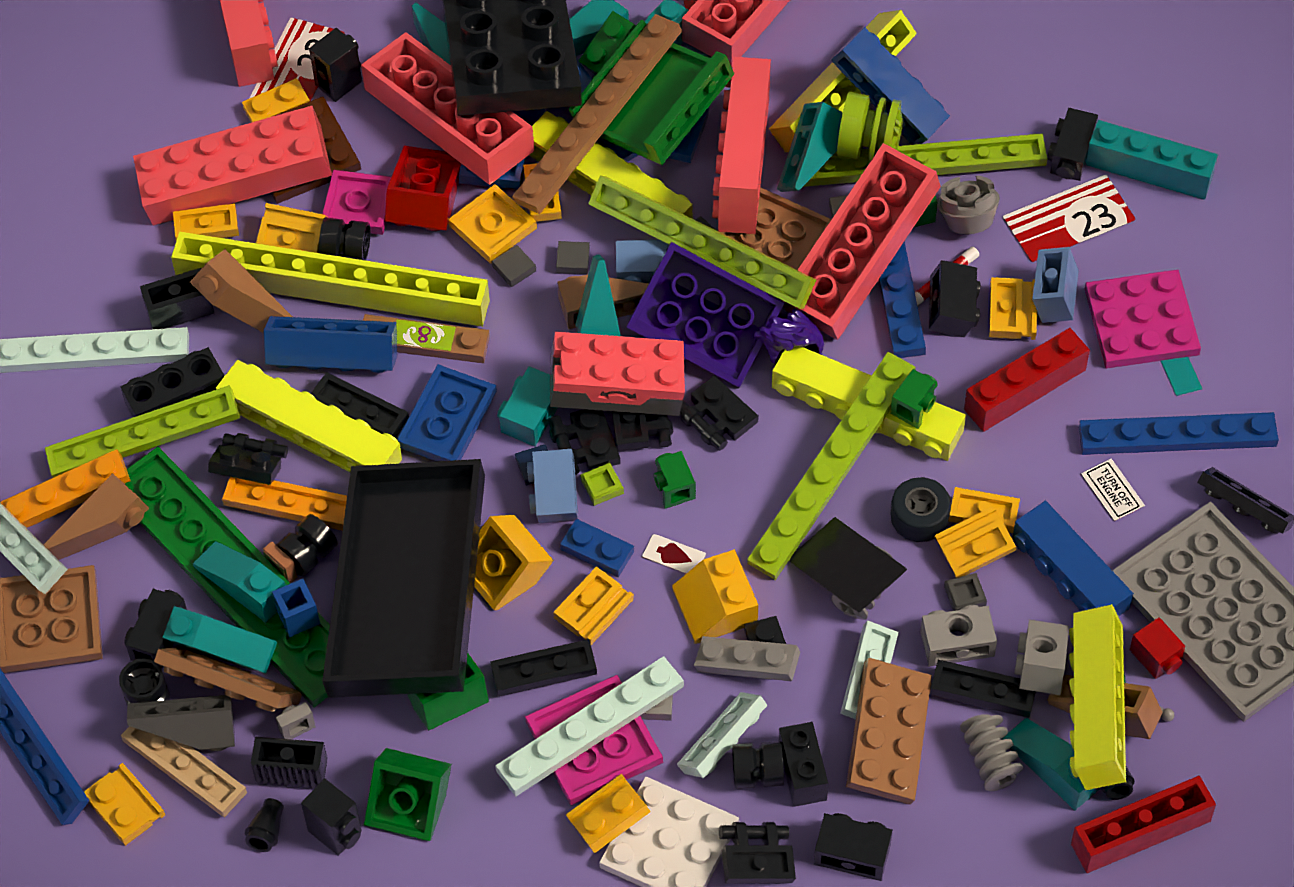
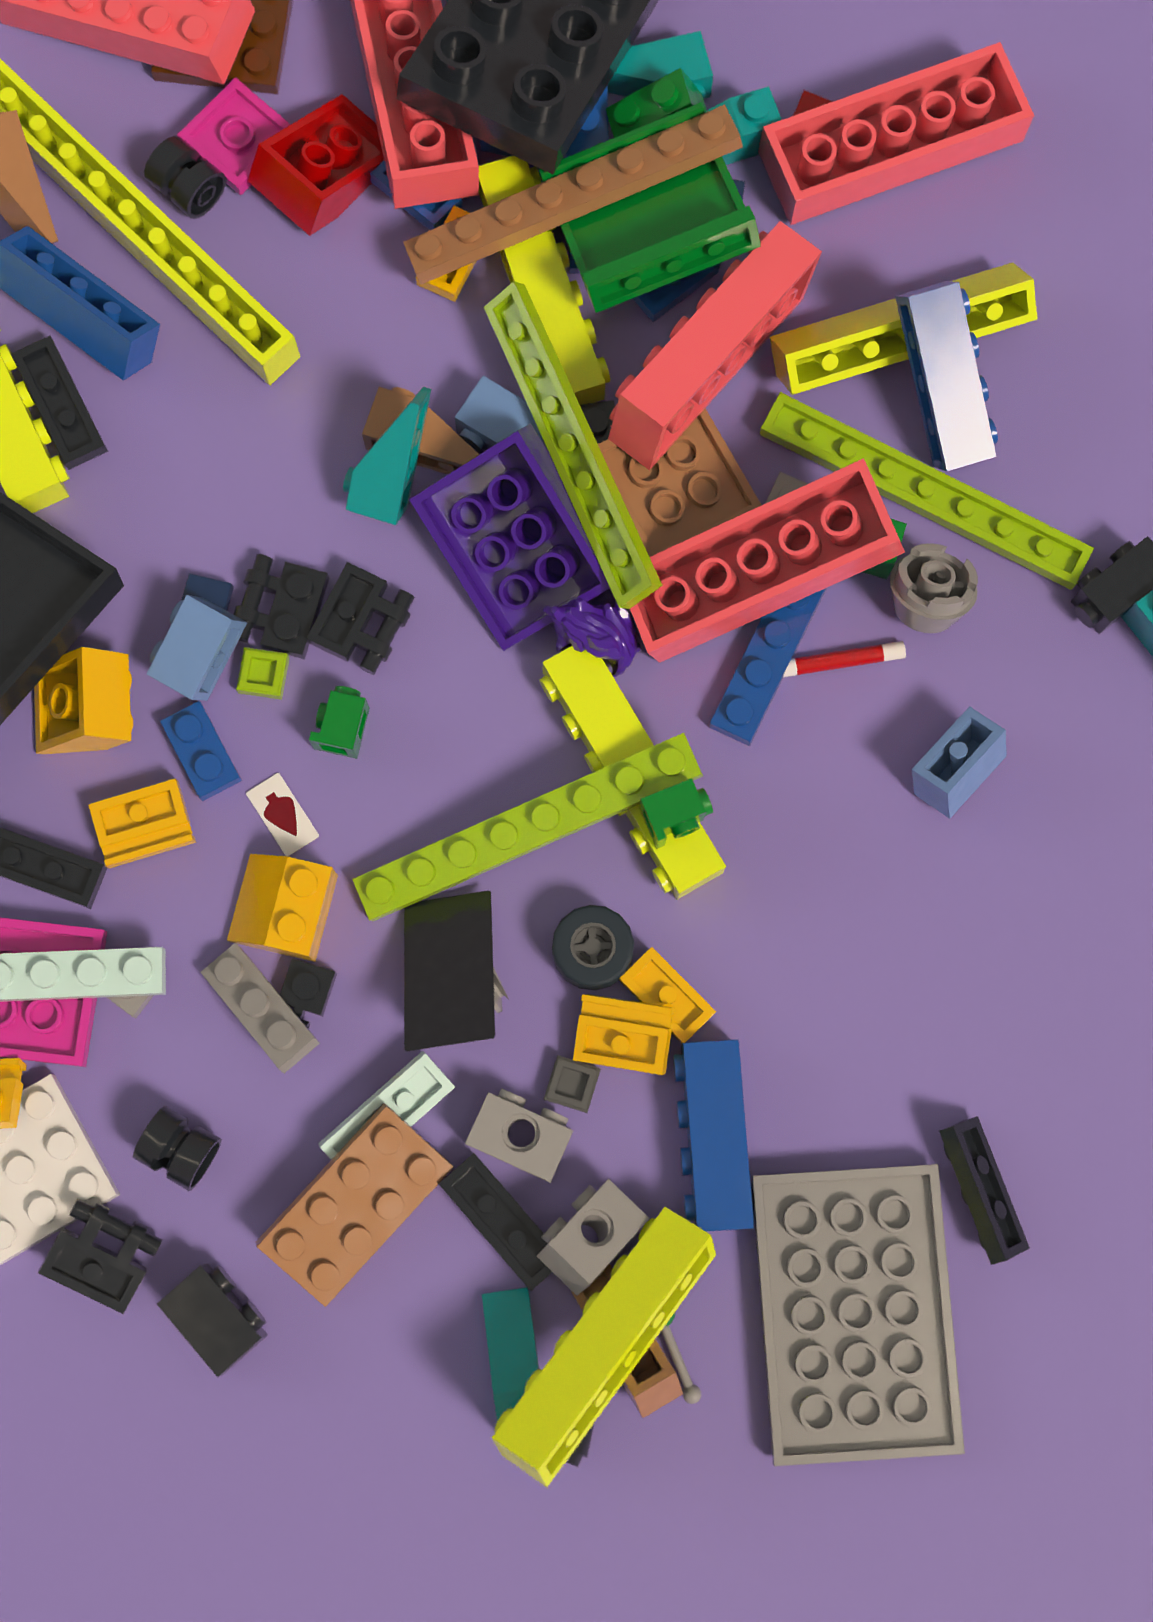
camera: 30 degrees right, 20 degrees up
(209, 221) = (52, 58): yellow plate -> none
(290, 228) = (131, 125): yellow plate -> none
(438, 339) = (203, 365): plate -> none
(446, 415) = (147, 476): blue plate -> none
(492, 223) = (368, 260): yellow plate -> none
(514, 266) = (358, 329): dark grey tile -> none
(528, 408) = (247, 524): teal brick -> none
(573, 257) = (432, 361): dark grey tile -> none
(617, 373) = (355, 553): coral piece -> none
(720, 736) = (167, 1081): light aqua plate -> none
(723, 408) = (466, 668): black plate -> none
(803, 764) = (228, 1181): black brick -> none
(812, 145) = (801, 395): teal slope -> none
(868, 127) = (873, 414): lime wheel -> none
(953, 299) = (827, 701): black brick -> none
(991, 751) = (452, 1310): light grey piece -> none
(1012, 309) = (887, 754): yellow plate -> none
(1026, 379) = (837, 862): red brick -> none
(1069, 217) = (1049, 676): sticker -> none
(1113, 489) = (841, 1063): white sticker -> none
(1142, 318) = (1038, 867): dark pink plate -> none
(1143, 824) = (553, 1524): red brick -> none
(1158, 648) = (737, 1311): red brick -> none
(1178, 433) = (971, 1045): blue plate -> none
(1181, 375) = (1034, 959): teal sticker -> none

